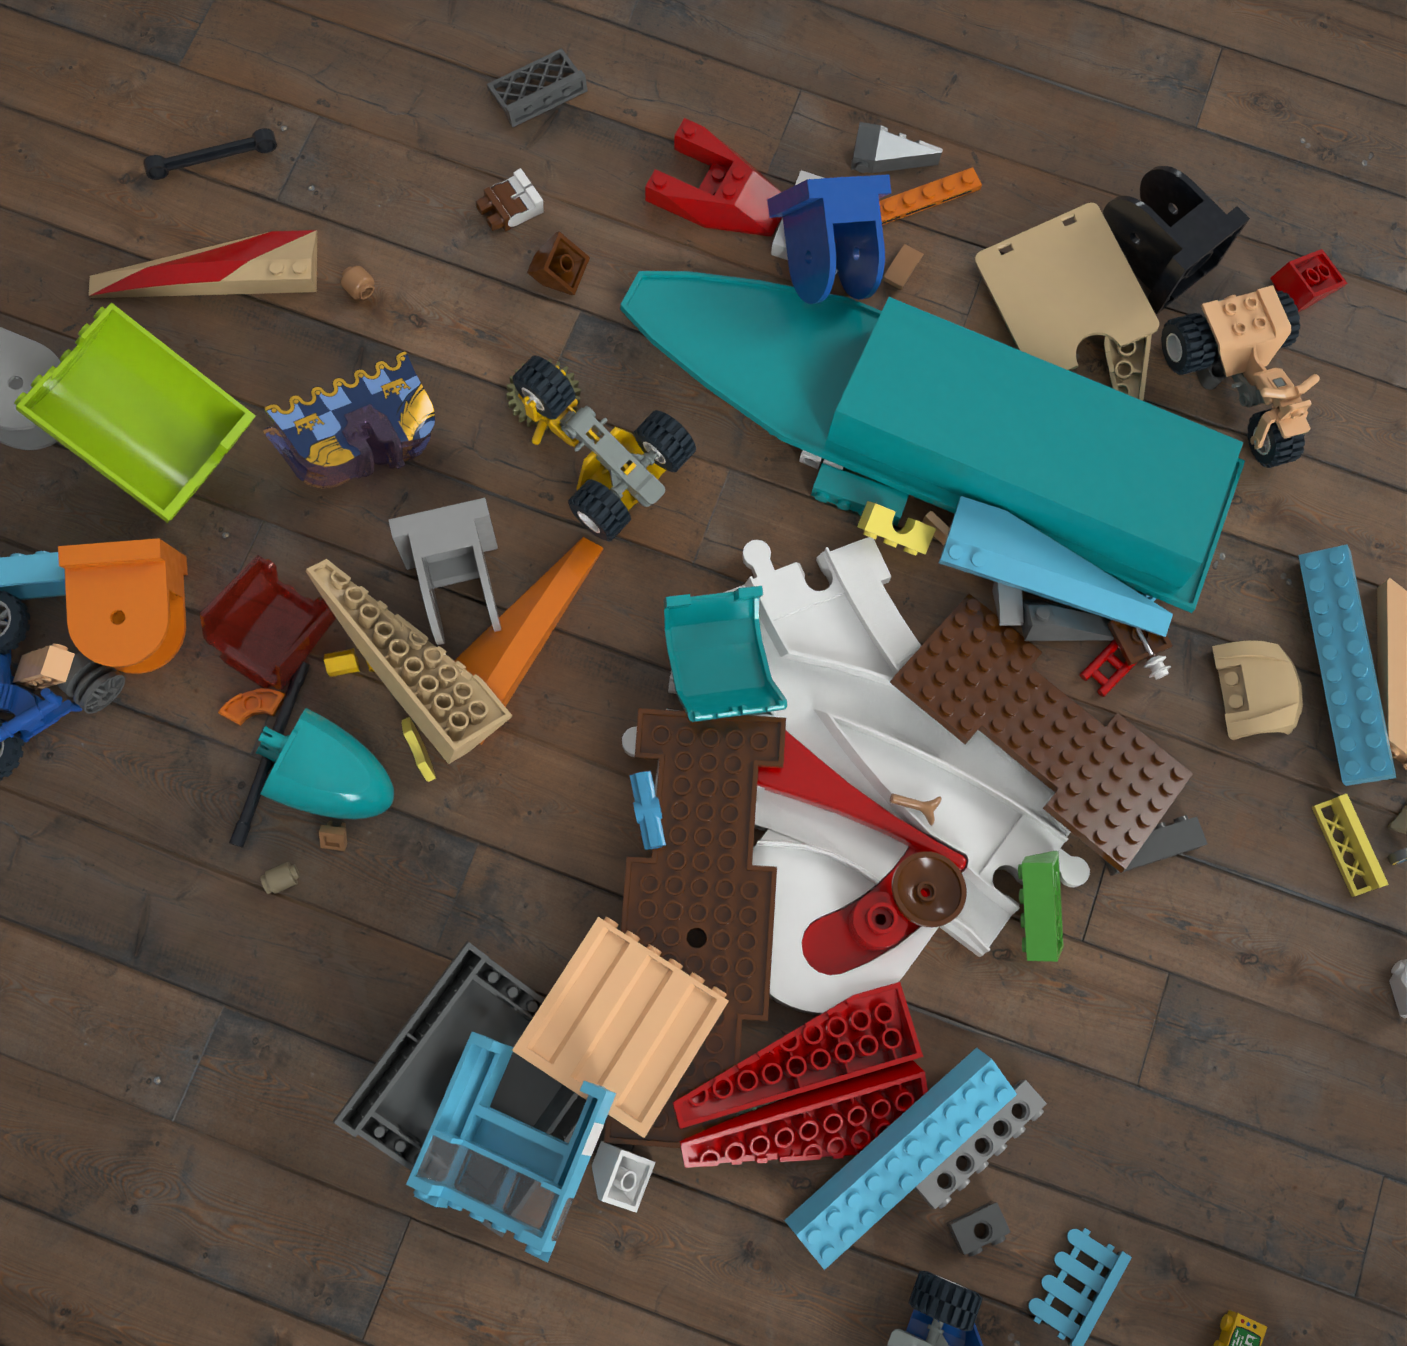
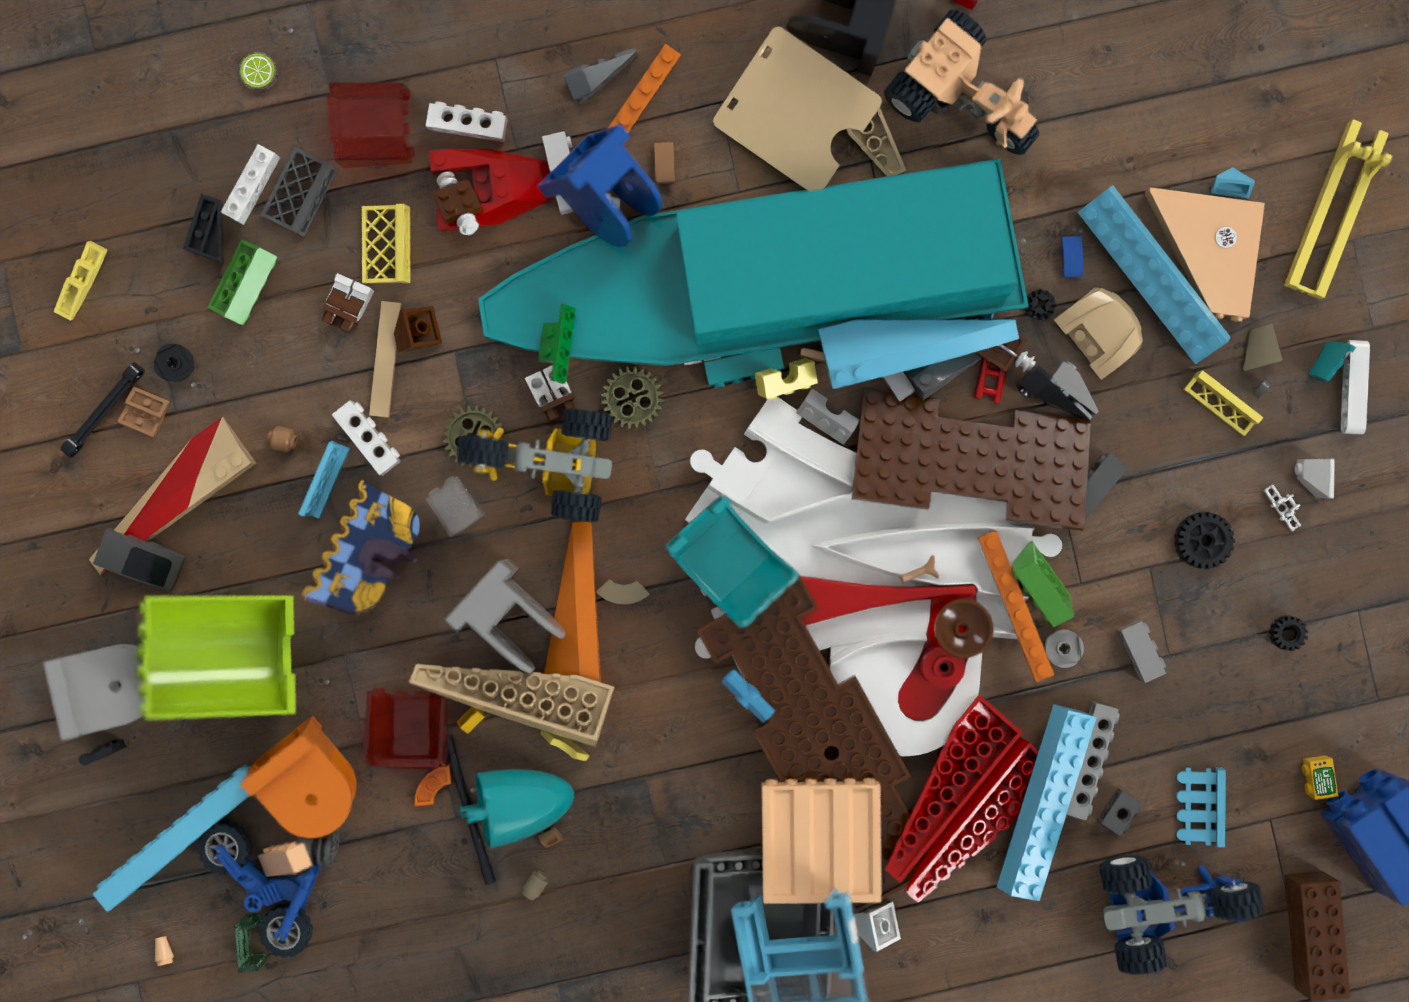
camera: 20 degrees left, 15 degrees up
(133, 292) = (139, 559): none -> dark grey slope
(246, 181) = (143, 412): none -> medium nougat slope
(278, 39) = (80, 281): none -> light yellow slope
(310, 167) = (163, 359): none -> black plate
(366, 347) = (324, 480): none -> medium azure fence
(427, 62) = (206, 230): none -> black wedge
(427, 127) = (242, 282): none -> bright green slope
(435, 298) = (345, 416): none -> white brick
(478, 446) = (455, 506): none -> clear slope
(497, 51) = (250, 184): none -> white brick
(505, 279) = (384, 360): none -> tan tile
(586, 638) = (621, 593): none -> dark tan tile
(602, 182) = (401, 241): none -> light yellow fence
(643, 64) = (369, 124): none -> clear red windscreen
(643, 403) = (551, 397): none -> white hips
(680, 174) = (457, 202): none -> reddish brown plate
(689, 350) = (556, 343): none -> green bracket
(723, 110) = (494, 132): none -> white brick
(729, 437) = (639, 413): none -> olive gear
(920, 609) = (837, 426): none -> light grey arch
(999, 908) = (1015, 606): none -> orange plate
(1035, 992) = (1072, 654): none -> light grey plate
(1110, 1057) = (1142, 651): none -> light grey brick
(1159, 705) = (1042, 387): none -> black wedge
(1193, 724) = (1072, 382): none -> light grey slope
(1198, 632) = (1038, 313): none -> black gear
(1266, 598) = (1072, 256): none -> blue slope
(1267, 976) = (1219, 540): none -> black wheel
(1275, 1150) = (1300, 633): none -> black tyre
(1353, 1010) = (1282, 500): none -> white piece

